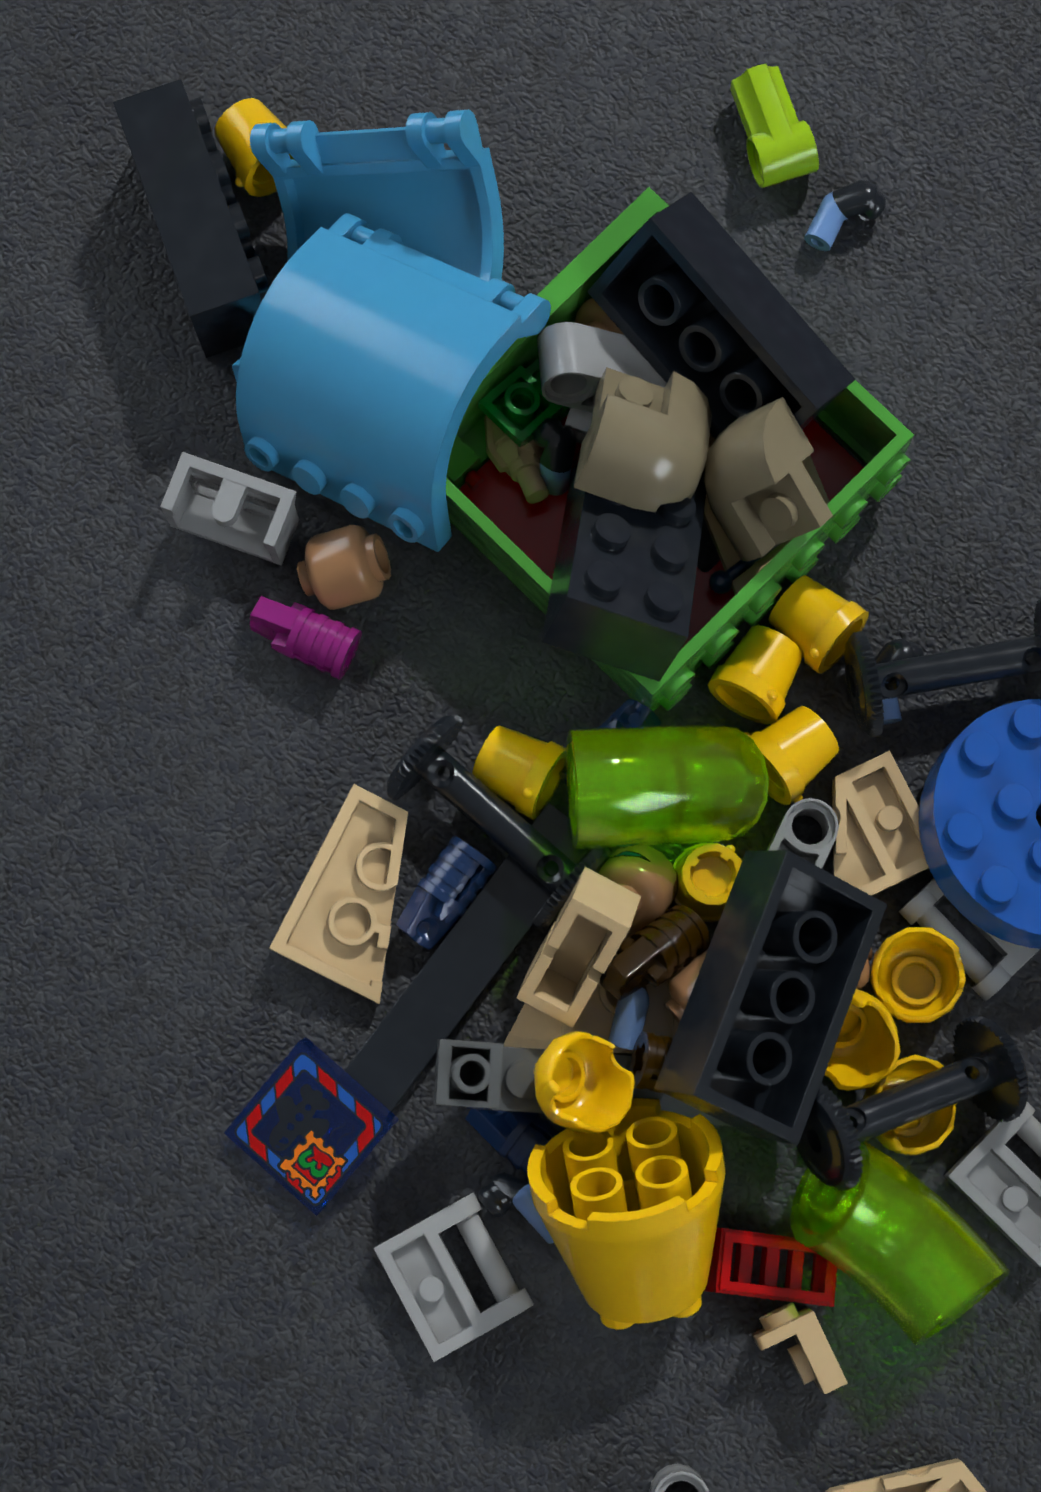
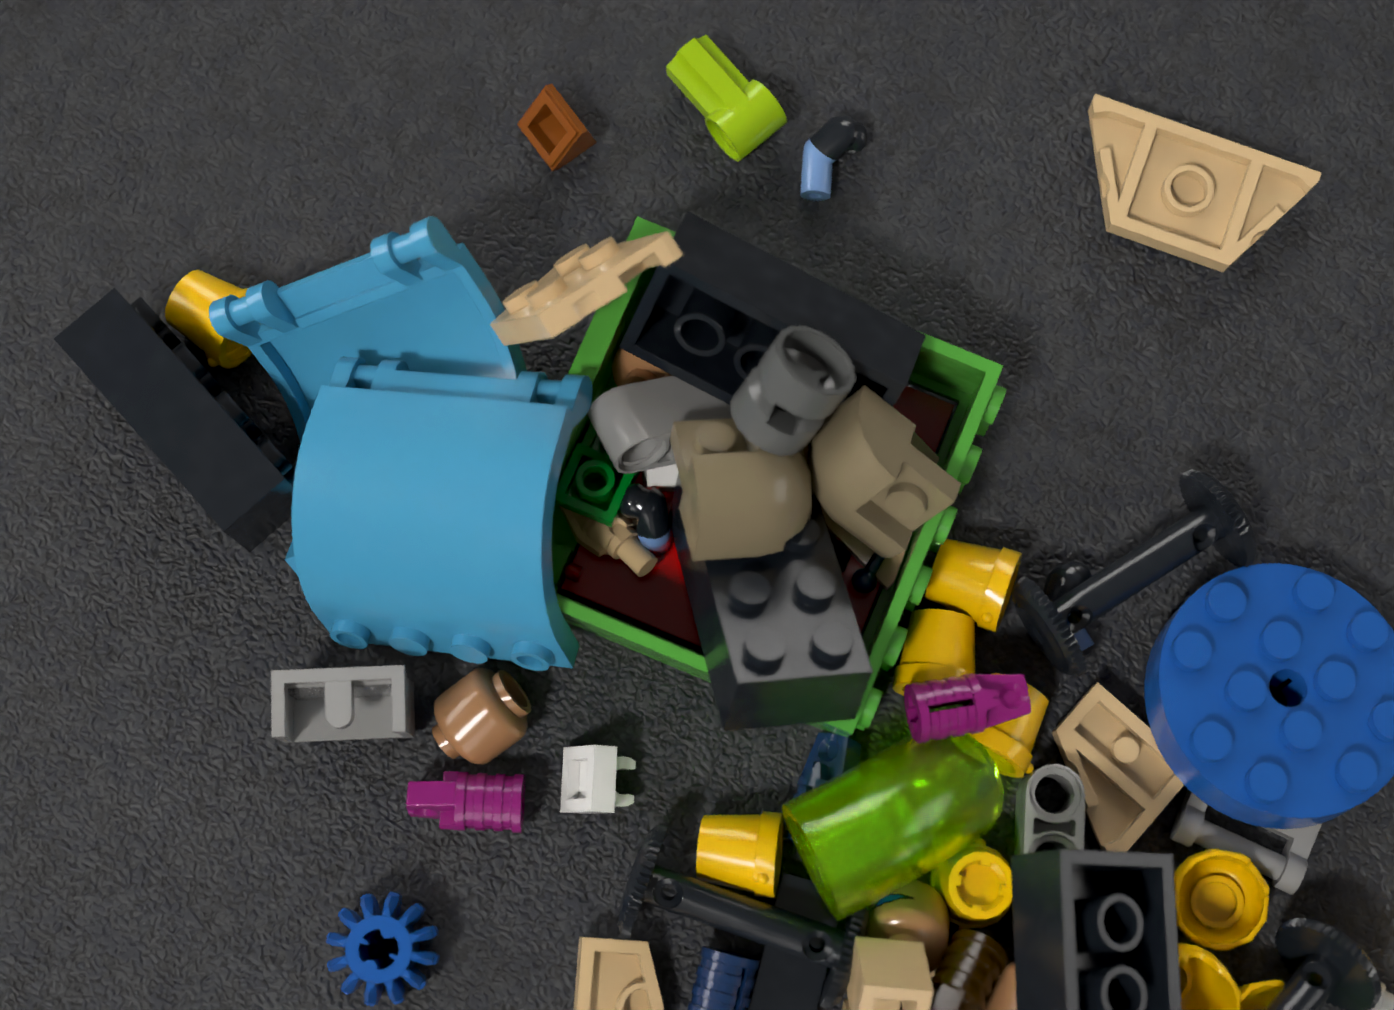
camera: 25 degrees left, 0 degrees up
(171, 705) = (375, 970): none -> blue gear
(415, 658) = (591, 779): none -> white tile
(578, 215) = (579, 286): none -> tan wing
(613, 99) = (555, 129): none -> dark orange slope
(717, 373) = (792, 390): none -> dark grey wheel
(762, 714) = (982, 698): none -> magenta hinge

